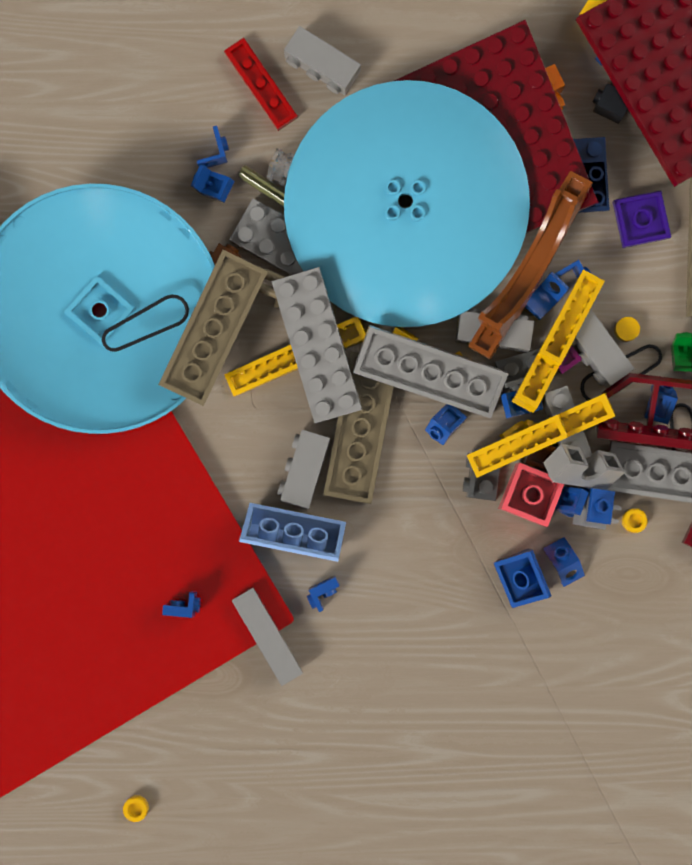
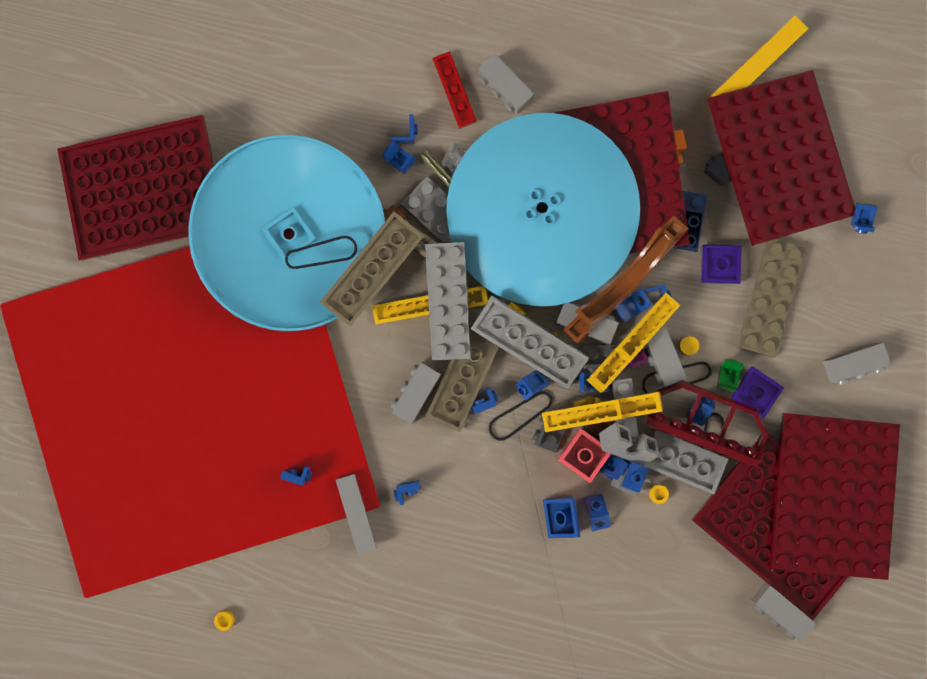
camera: 15 degrees right, 0 degrees up
(293, 532) = (395, 439): light blue slope -> none
(390, 463) = (482, 405): none -> blue bracket
(449, 473) = (513, 408): none -> black piece

